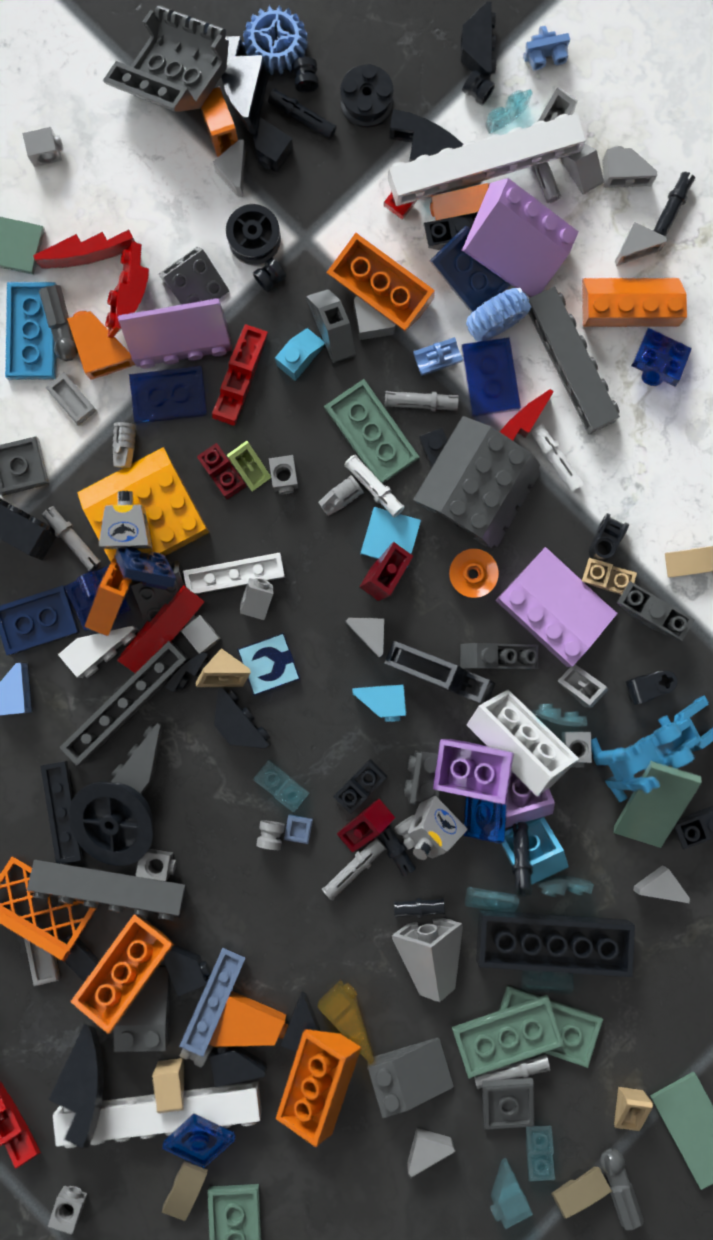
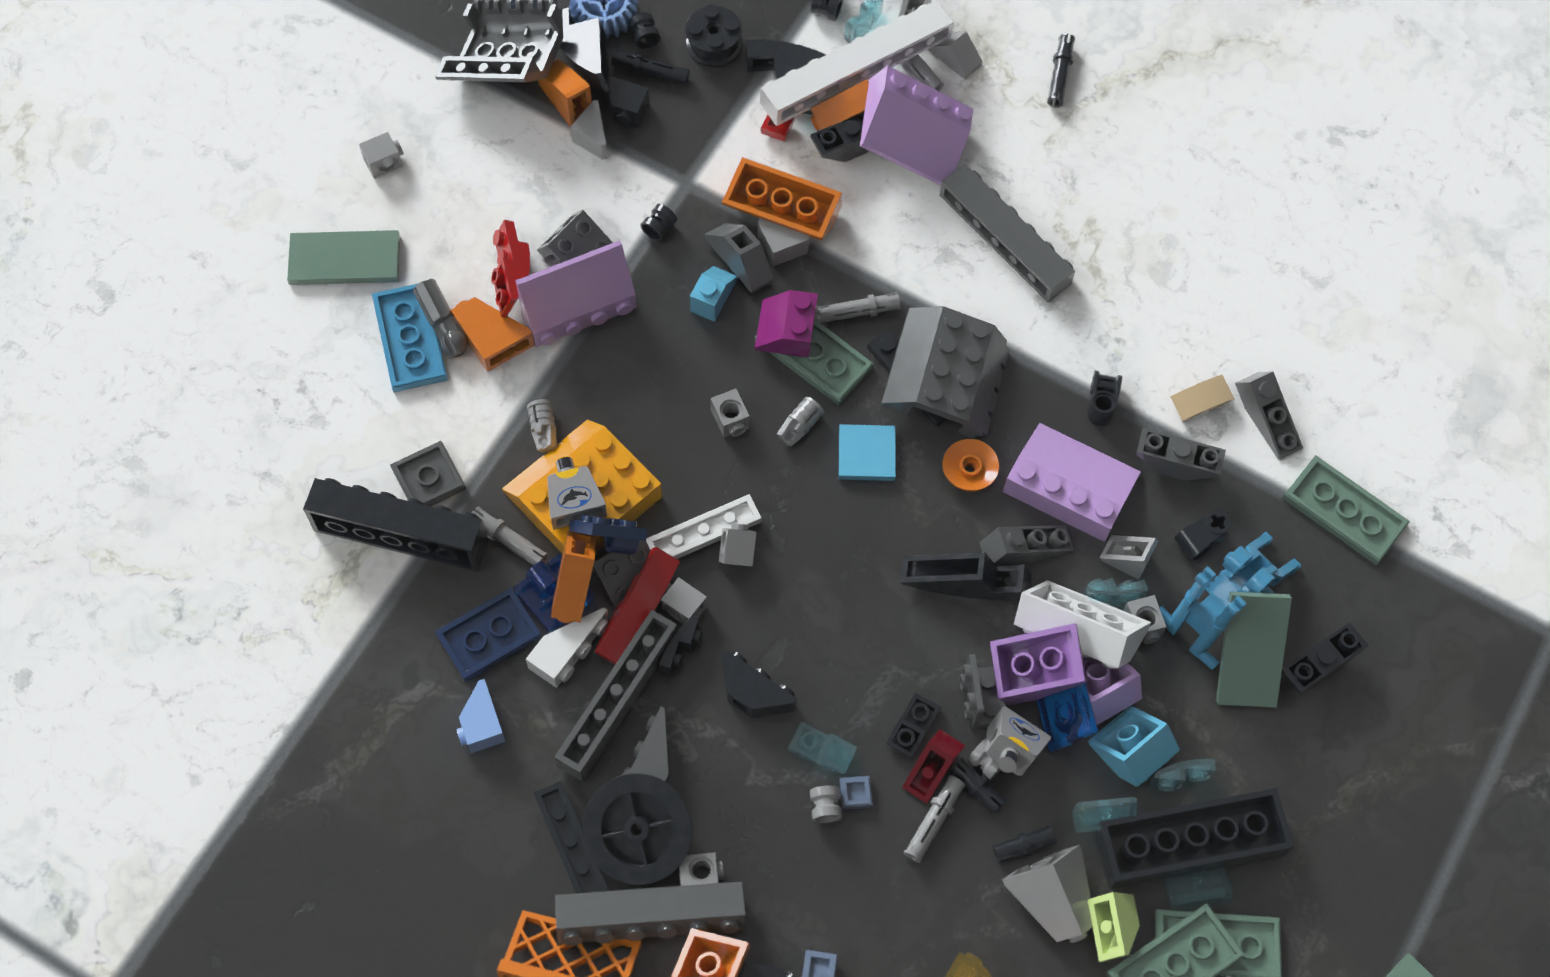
camera: 15 degrees left, 20 degrees down
(71, 399) = (471, 394): light grey tile -> none
(74, 252) = (444, 246): red slope -> none
(168, 394) = (578, 366): clear blue tile -> none
(221, 471) = (658, 429): dark red slope -> none
(223, 672) = (722, 632): tan slope -> none
(239, 374) = (653, 327): red slope -> none
(249, 466) = (688, 413): yellowish green slope -> none
(253, 234) = (631, 187): black wheel -> none
(269, 664) = (769, 618): medium azure tile -> none
(353, 403) = (787, 323): none -> magenta slope
(370, 631) = (874, 554): light grey slope -> none
(377, 489) = (843, 407): white pin -> none
(383, 700) = (910, 617): medium azure slope -> none
(386, 572) = (874, 485): dark red slope -> none
(437, 356) = (863, 259): medium blue hips -> none
(465, 275) = (870, 174): dark blue plate -> none
(468, 996) = (1113, 924): none -> yellowish green slope
(490, 377) = (925, 269): clear blue tile -> none
(498, 314) = (915, 203): light blue gear -> none
(522, 866) = (1127, 750): black pin -> none
(526, 417) = (977, 296): red slope -> none
(556, 457) = (1012, 323): white pin -> none
(607, 576) = (1115, 437): tan slope -> none
(626, 169) = (1002, 45): light grey slope -> none
(633, 302) = (1052, 165): orange slope -> none
(639, 243) = (1040, 108): light grey slope -> none
(660, 359) = (1099, 204): clear blue plate -> none
(662, 885) = (1295, 746): light grey slope -> none

